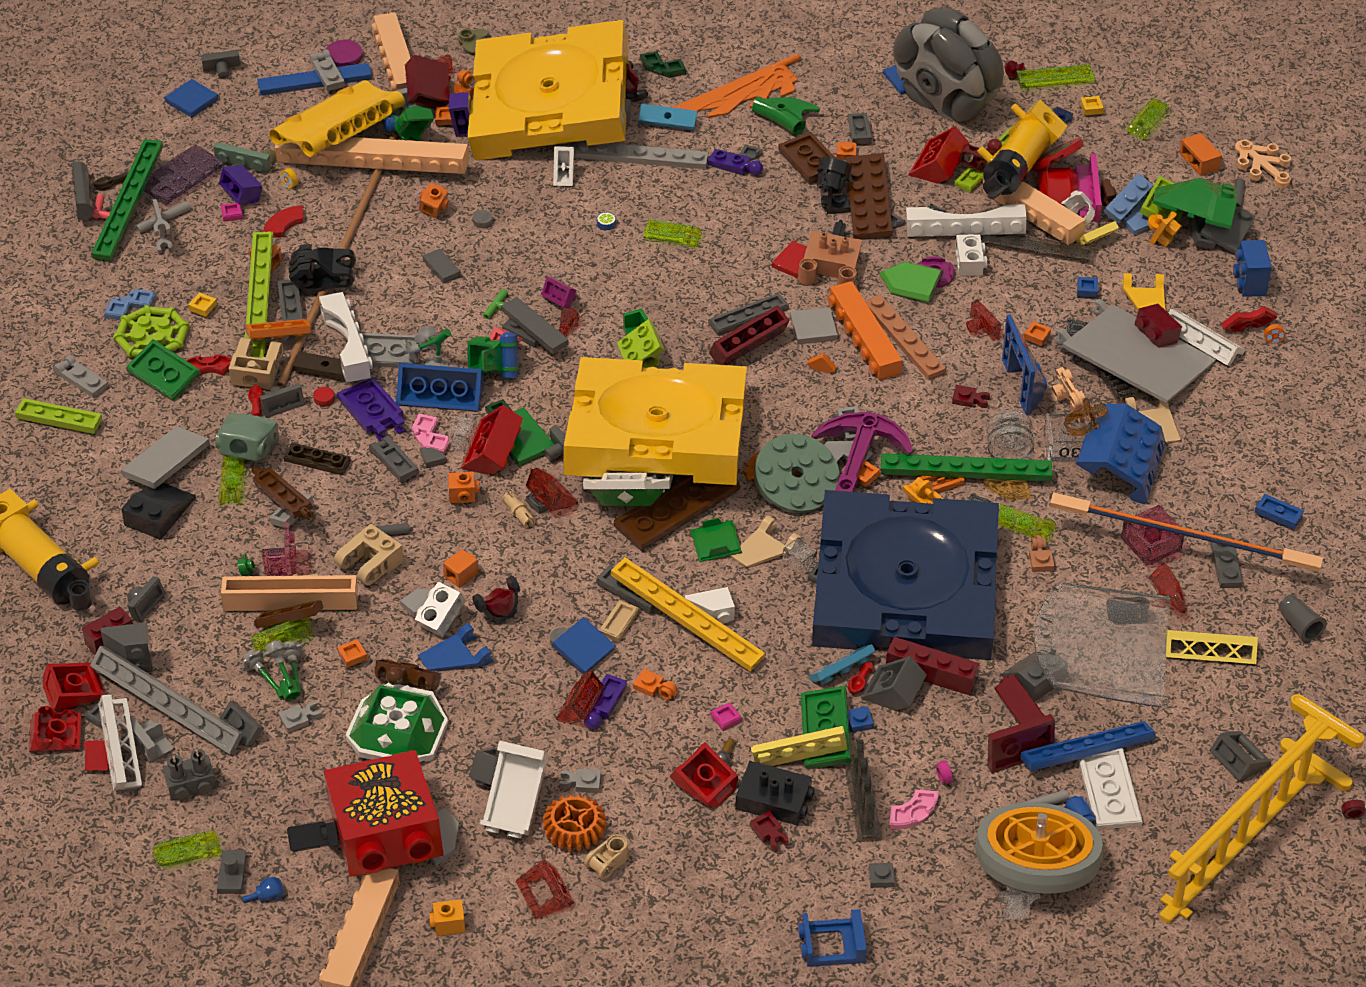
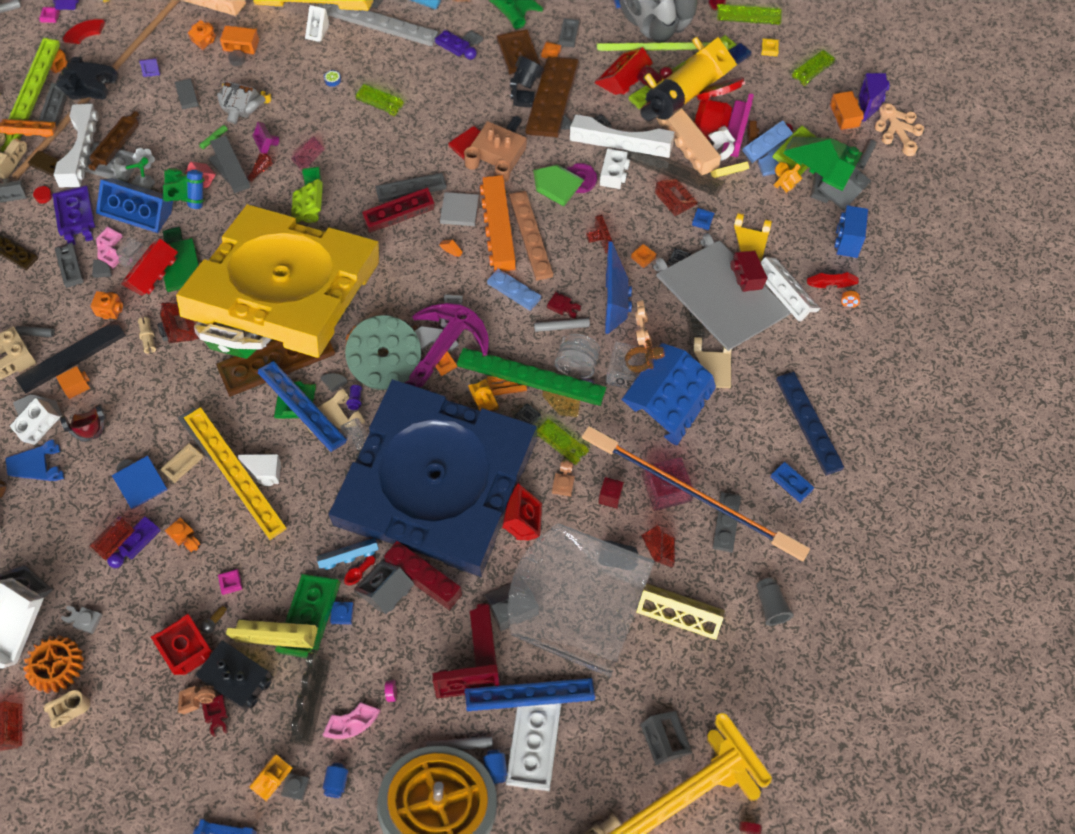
camera: 15 degrees right, 15 degrees up
(386, 244) = (149, 67): none -> dark purple tile
(386, 325) = (114, 140): none -> reddish brown plate
(441, 547) = (70, 356): none -> black tile
(479, 197) = (239, 39): none -> orange brick
(512, 259) = (240, 100): none -> light grey torso
(614, 300) = (307, 153): none -> clear pink slope
(731, 539) = (302, 406): none -> blue tile
(738, 820) = (190, 698): none -> nougat plate
(750, 514) = (333, 381): none -> dark grey tile
(782, 527) = (354, 397): none -> dark purple pin
(855, 868) = (270, 777): none -> light orange hips
(909, 392) = (514, 289): none -> medium blue plate
(922, 858) = (335, 780): none -> blue brick
(963, 125) = (650, 46): none -> lime tile
(974, 415) = (562, 324): none -> light grey piece
(1013, 592) = (523, 515): none -> red slope
(1046, 271) = (670, 200): none -> clear red tile
(1096, 555) = (611, 492): none -> dark red brick
(1224, 130) = (872, 93): none -> dark purple slope
(1275, 456) = (810, 423): none -> dark blue plate

